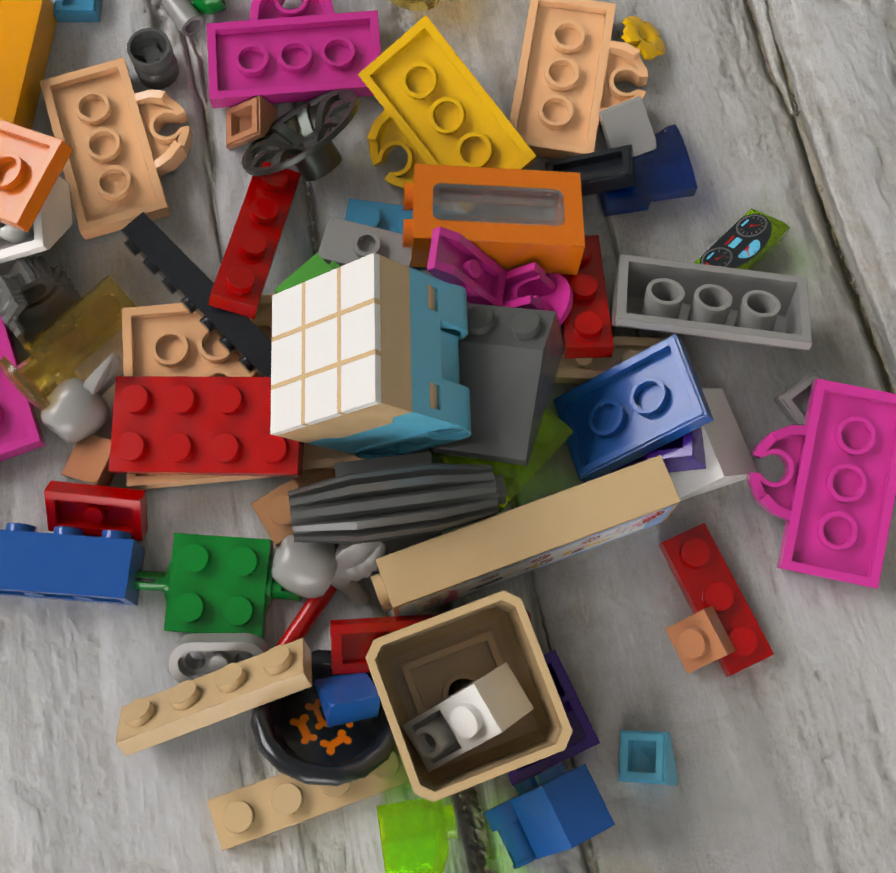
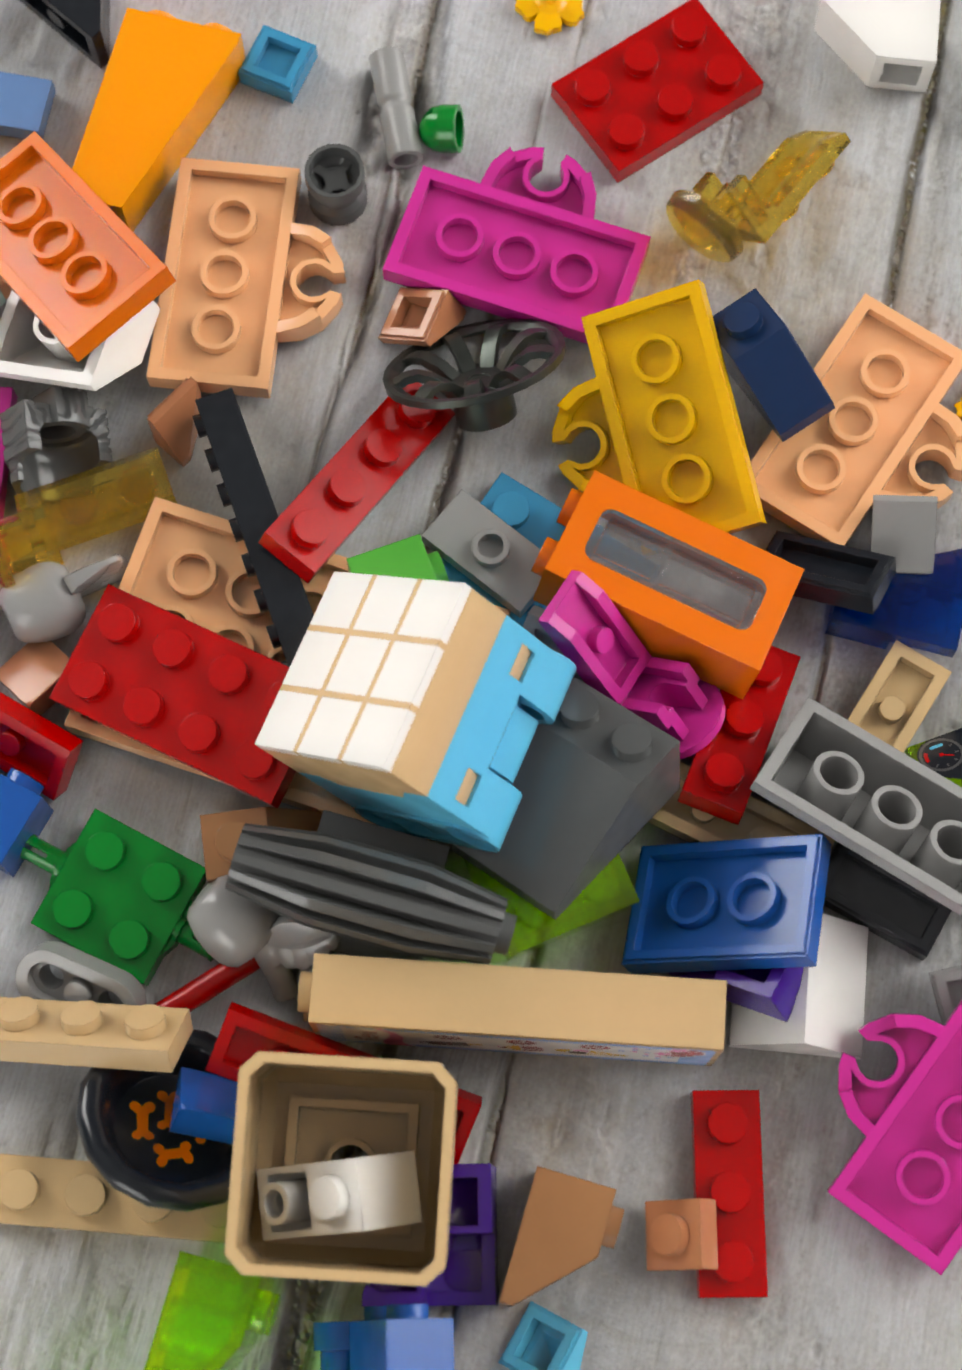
camera: 25 degrees right, 0 degrees up
(113, 255) = (173, 421): none -> nougat slope
(496, 57) = (770, 365): none -> dark blue slope
(619, 676) = (559, 1232): none -> medium nougat slope
(673, 230) = (899, 696): none -> tan plate
(730, 365) = (883, 903): none -> black tile

